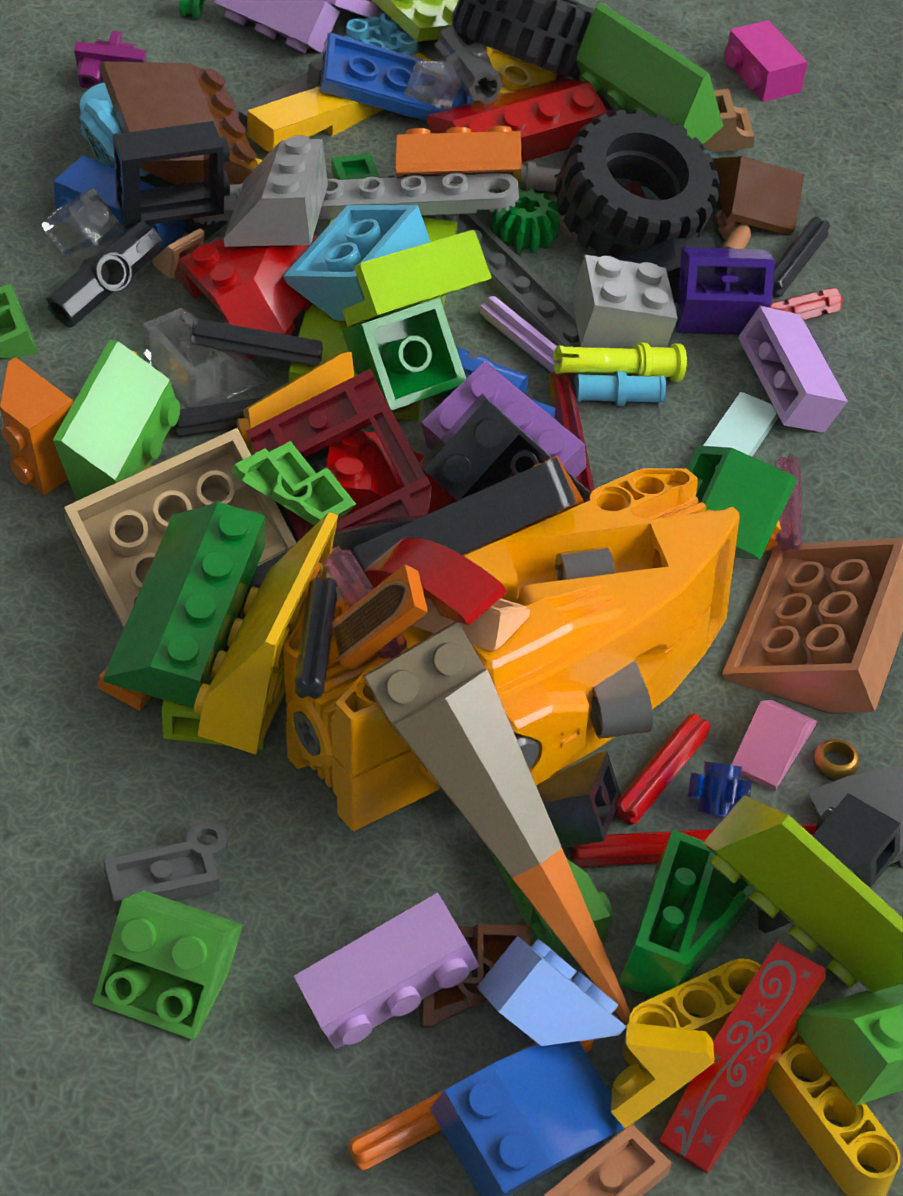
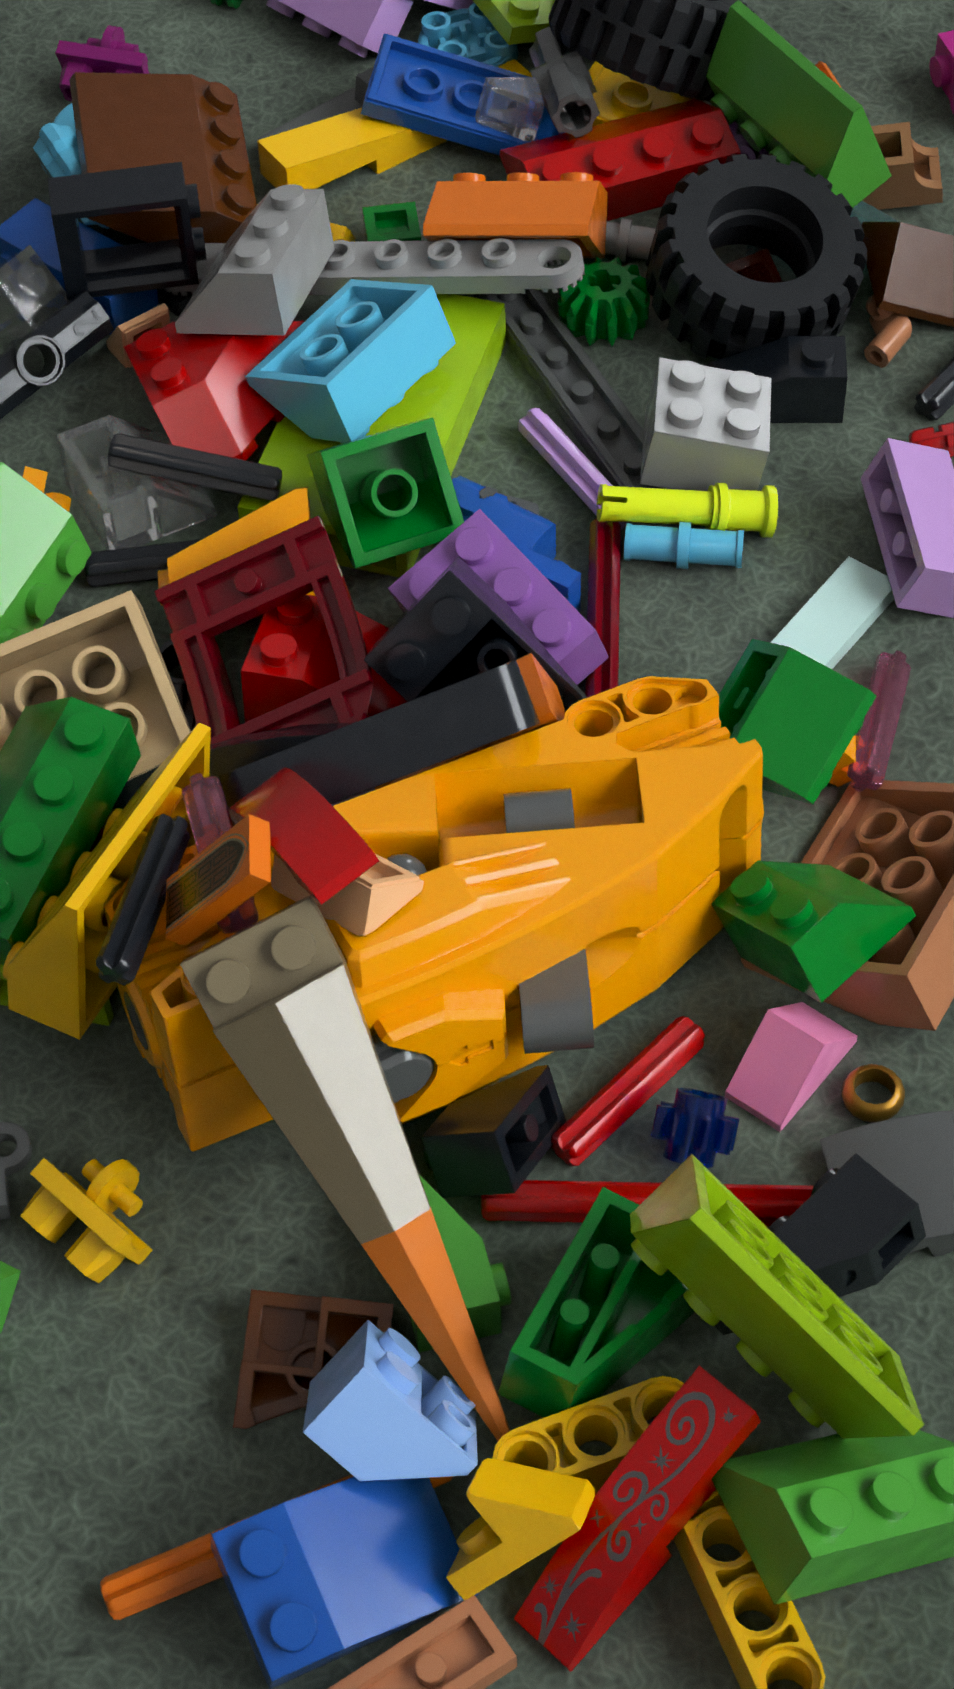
camera: 15 degrees right, 5 degrees up
(294, 484) = (195, 670): bright green slope -> none
(300, 895) = (64, 1200): none -> yellow hips
(386, 972) = (188, 1354): lavender brick -> none
(418, 276) = (416, 383): lime panel -> none
(722, 288) = (843, 409): dark purple slope -> none
(774, 642) = (808, 922): none -> green slope

